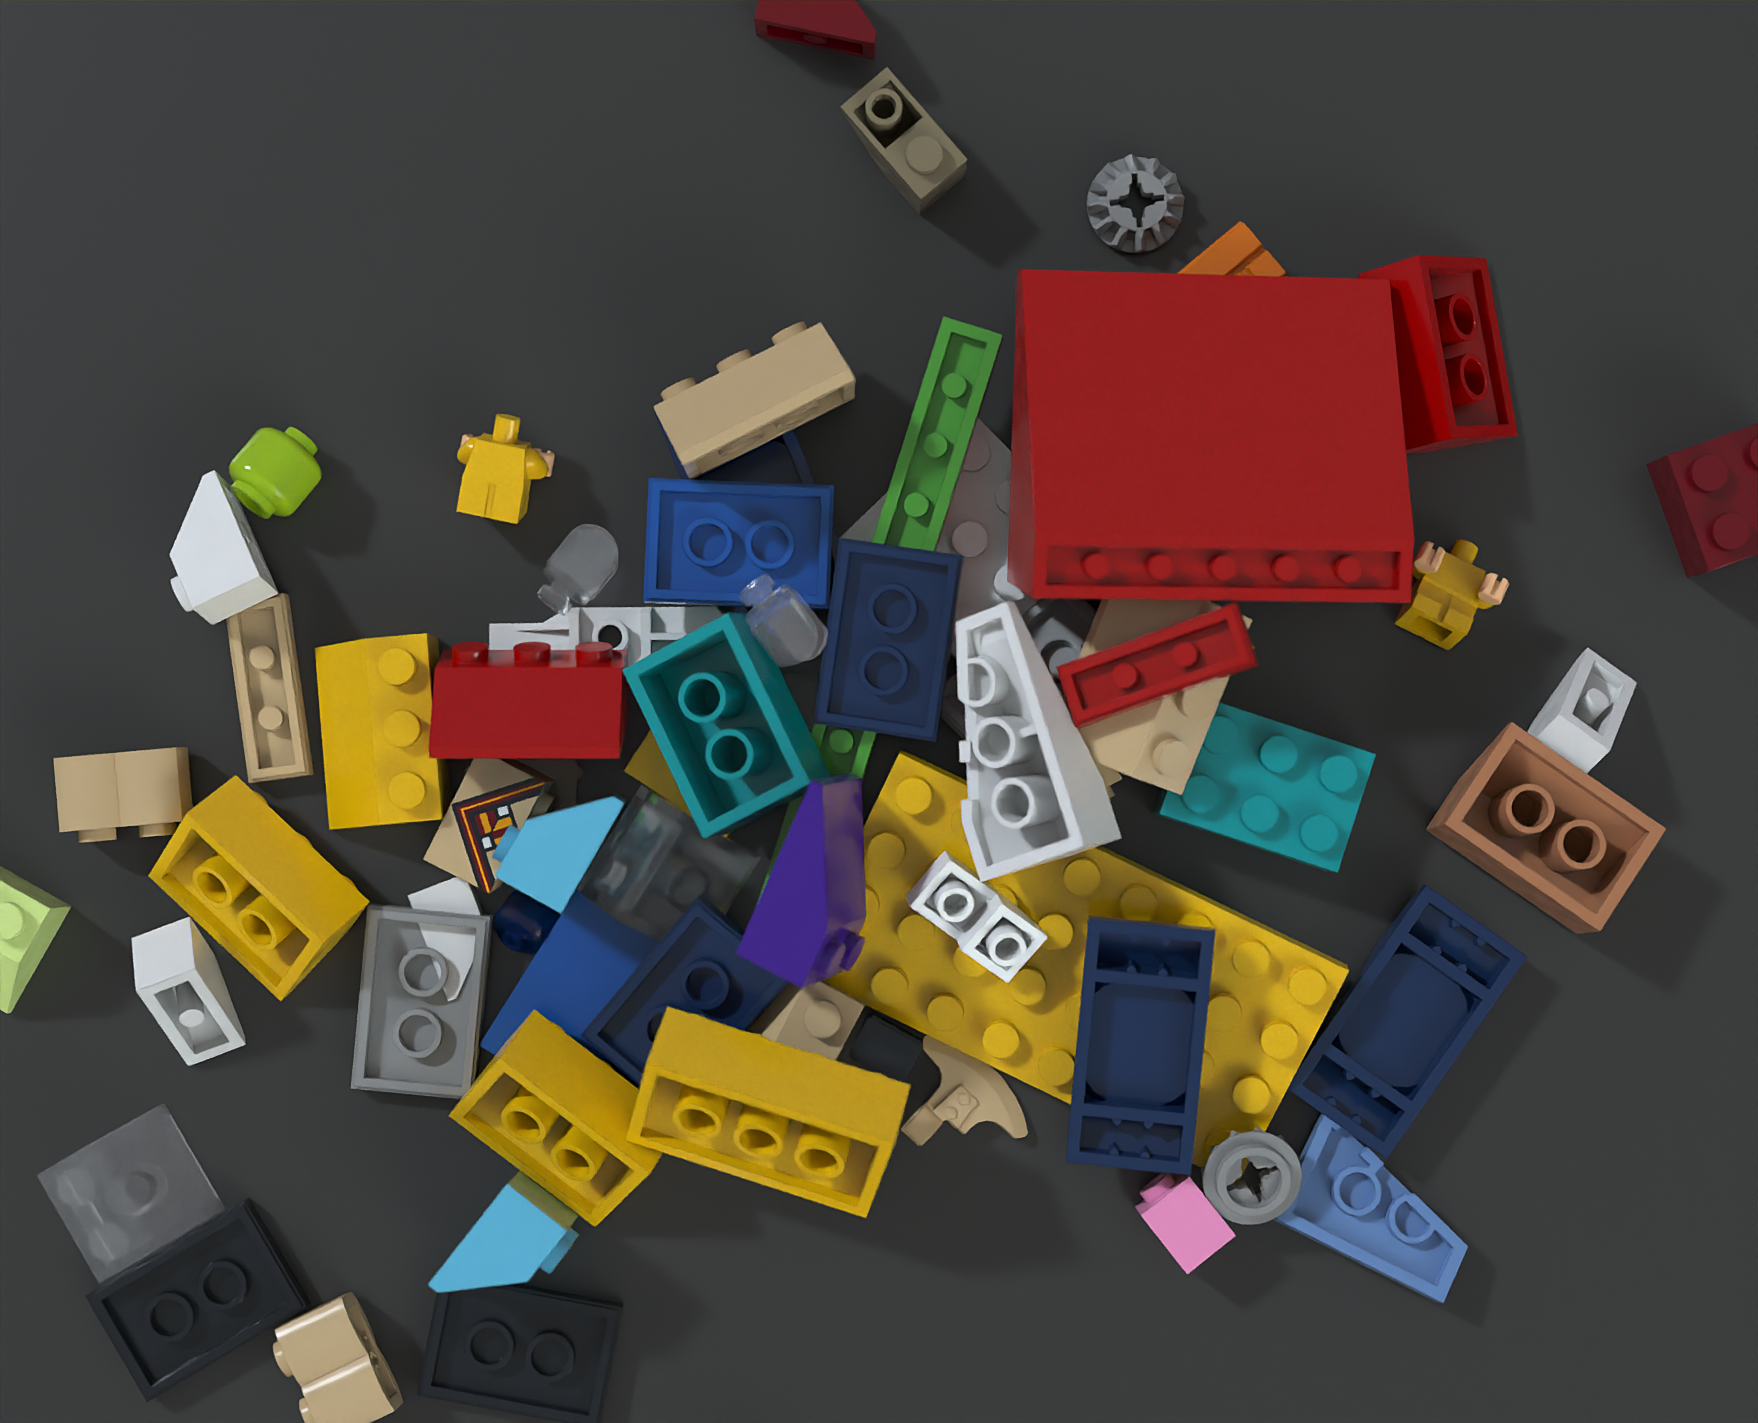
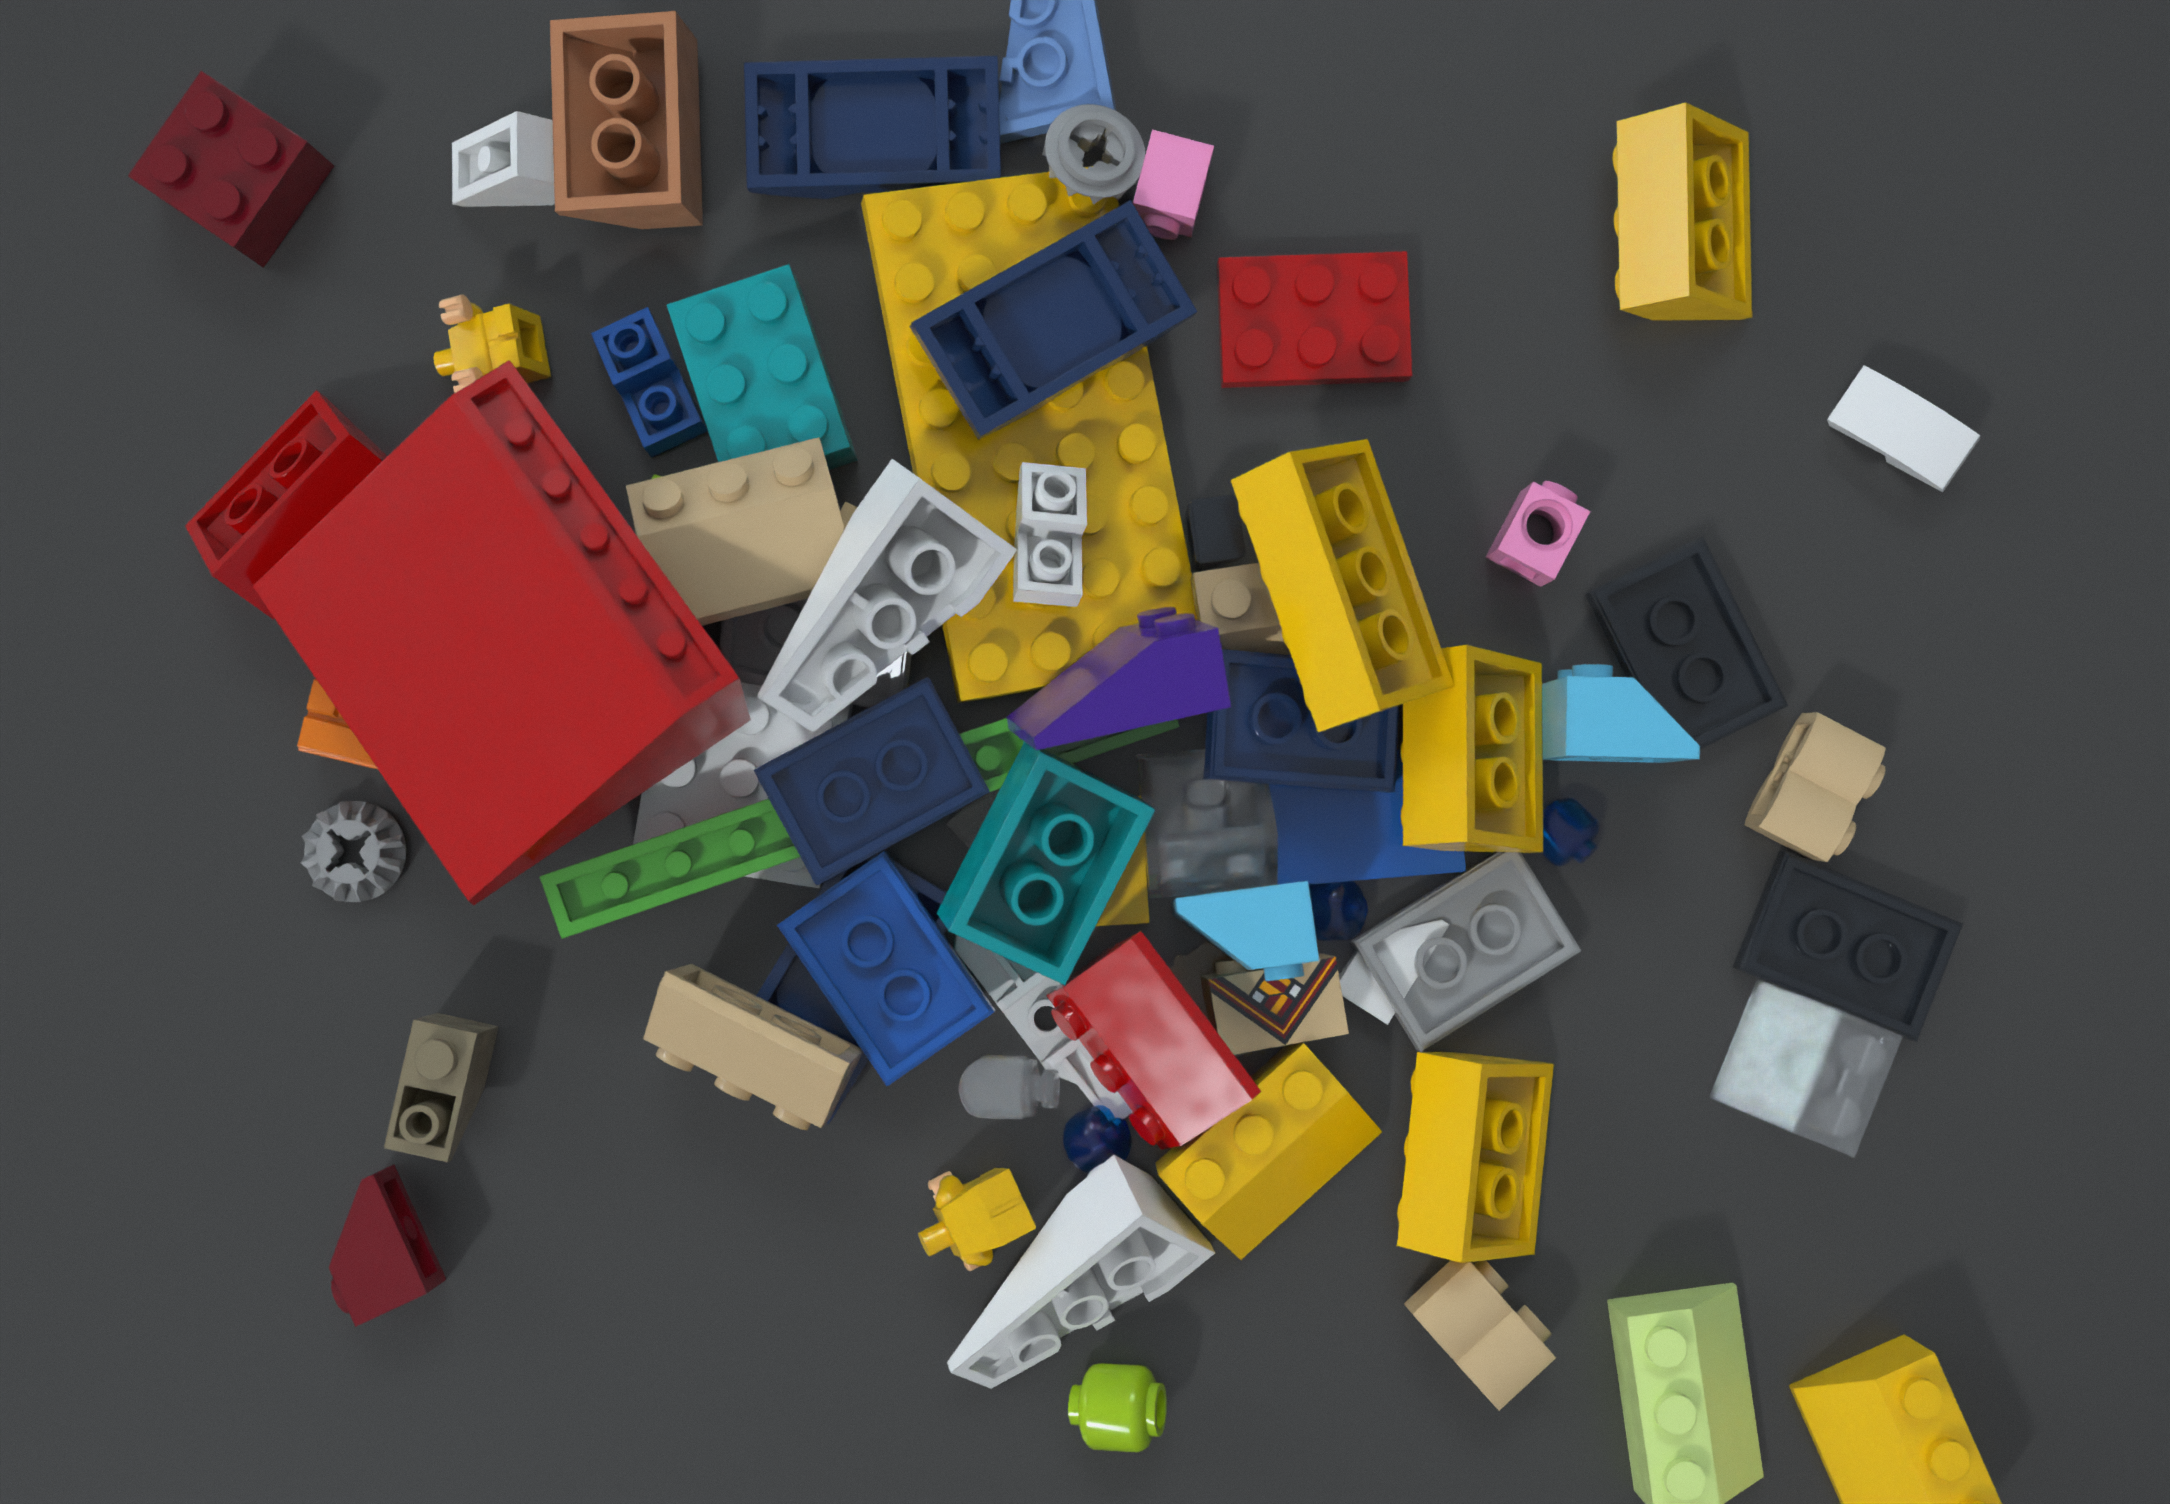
camera: 125 degrees left, 0 degrees up
(186, 991) = (1606, 1149): white slope -> none
(218, 556) = (1225, 1401): white slope -> none
(269, 691) = (1303, 1273): tan tile -> none
(403, 540) = (1094, 1253): none -> white wedge
(449, 1148) = (1568, 832): none -> clear blue piece
(489, 606) = (1095, 1137): none -> clear blue piece
(693, 1274) = (1519, 552): none -> bright pink brick
(783, 622) = (923, 879): clear arm -> none
(965, 1095) = (1205, 440): tan piece -> none
(996, 1253) = (1314, 319): none -> red plate
(1157, 665) = (721, 533): red tile -> none
(1332, 696) = (649, 382): none -> blue slope

